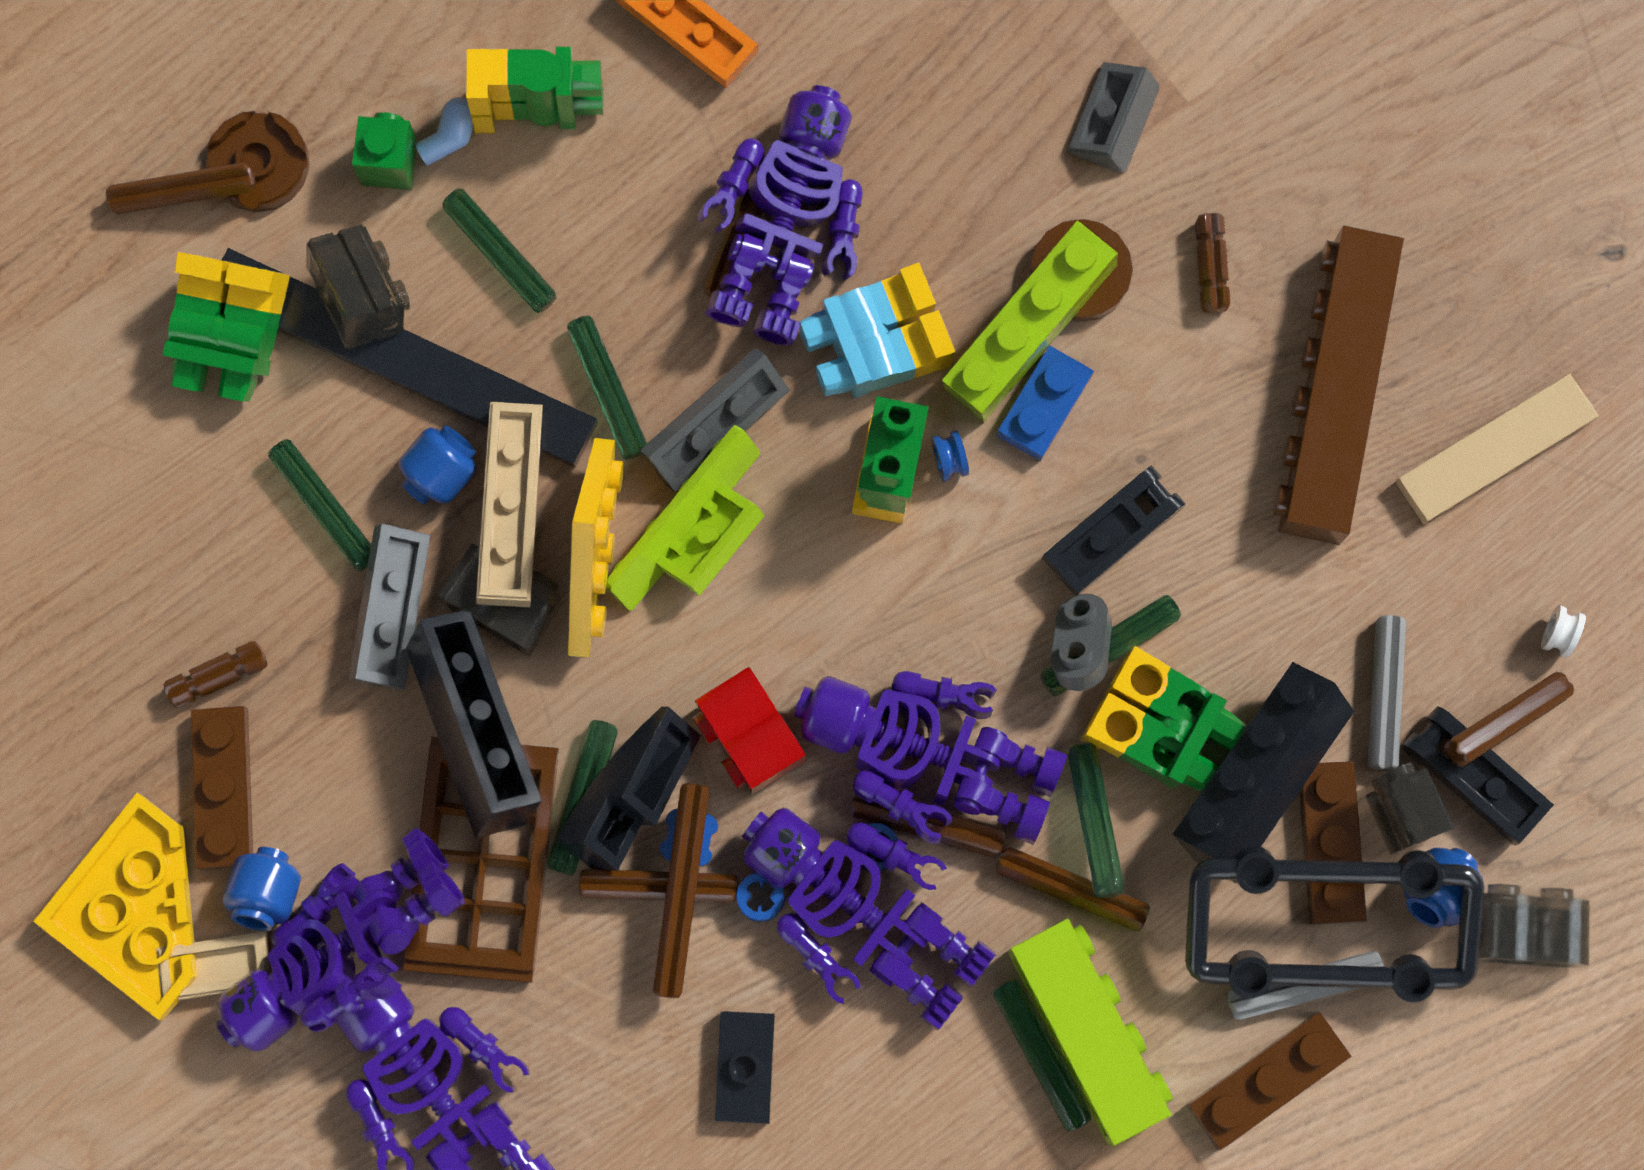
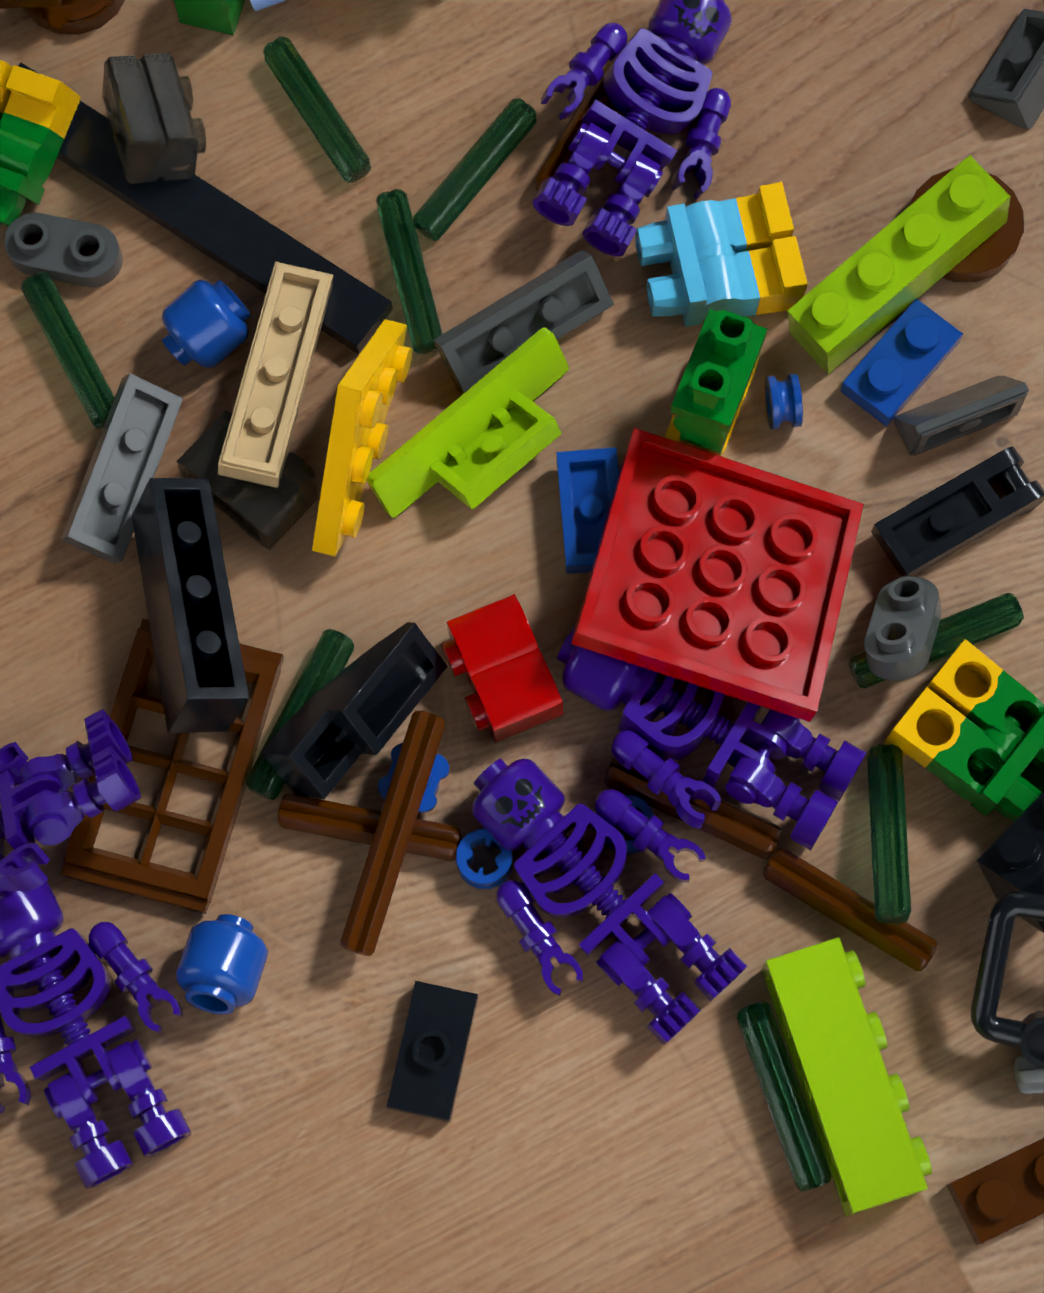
camera: 15 degrees right, 5 degrees down
(296, 414) = (61, 249): none -> dark grey plate
(555, 1025) = (221, 964): none -> blue head
(648, 284) = (475, 169): none -> clear green axle
(801, 579) = (585, 495): none -> blue plate
(920, 622) = (720, 575): none -> red plate
(1101, 440) = (960, 413): none -> dark grey slope

